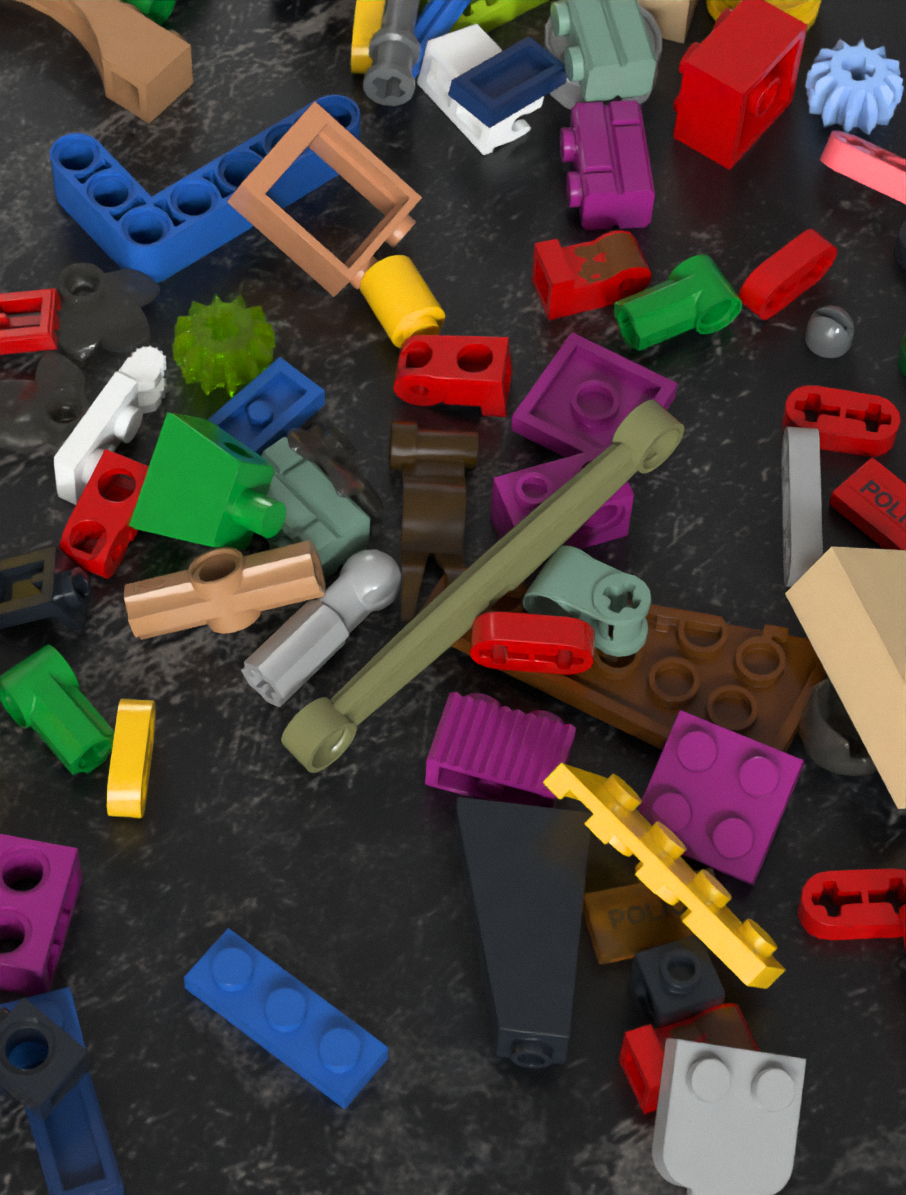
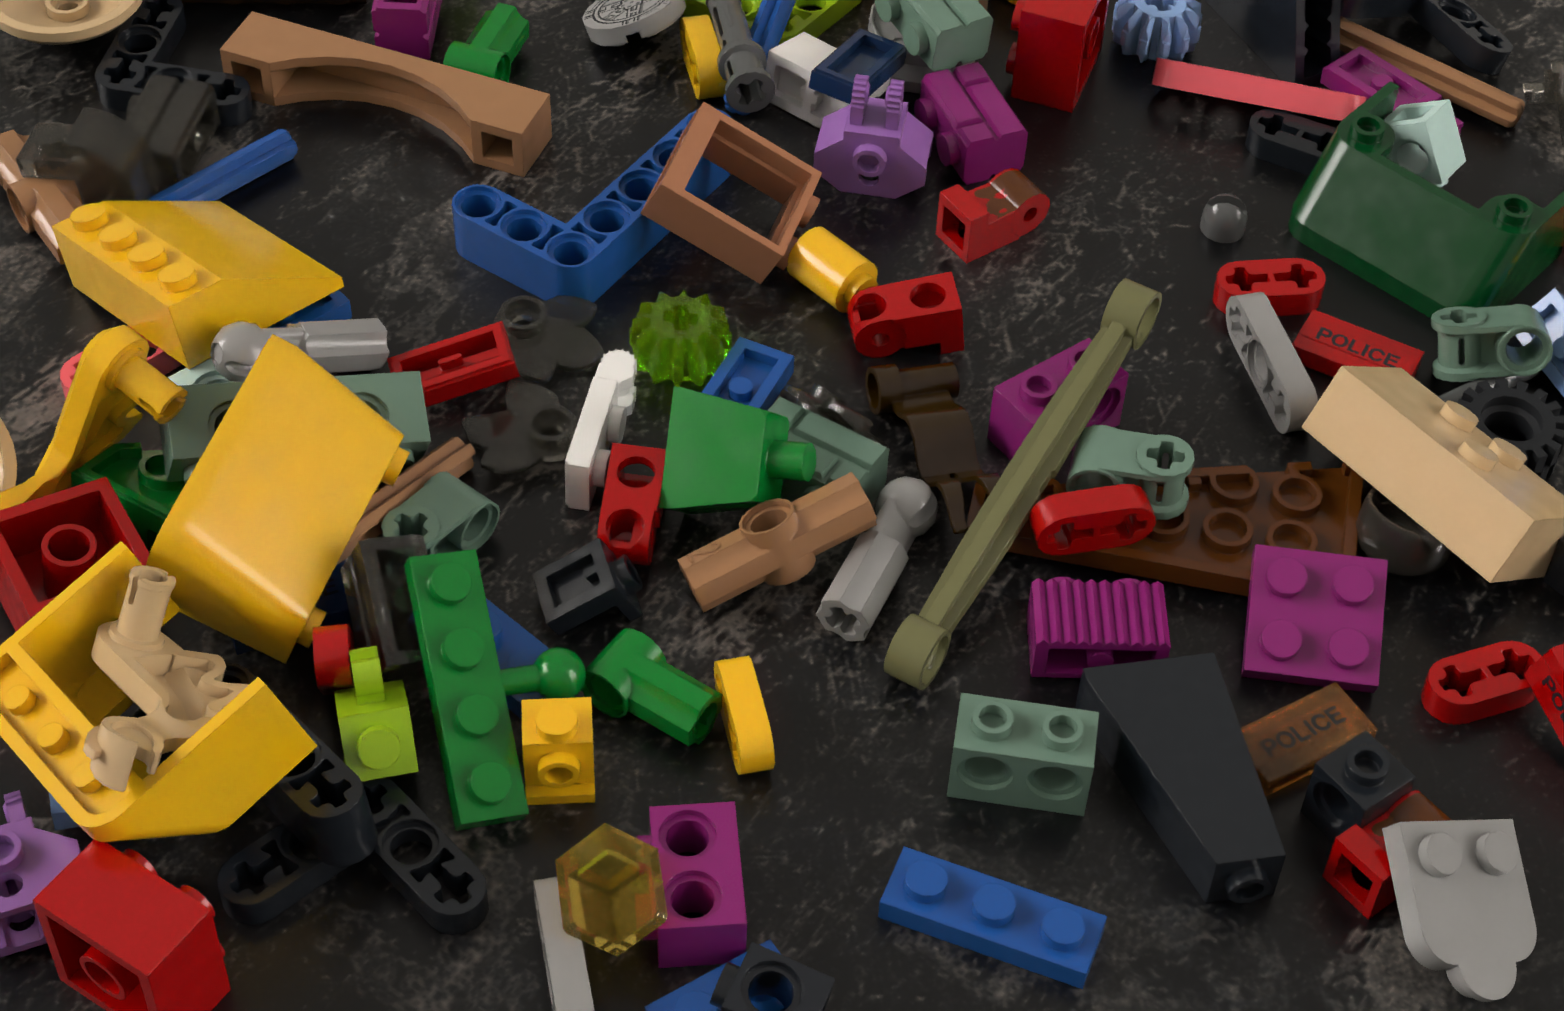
camera: 15 degrees left, 10 degrees down
(372, 866) = (1023, 754): none -> sand green brick
(496, 169) = (874, 140): none -> medium lavender hinge
(586, 398) = (1039, 314): magenta plate -> none
(690, 298) = (1091, 215): green piece -> none
(739, 945) = (1296, 676): yellow wing -> none
(787, 274) = (1168, 178): red beam -> none

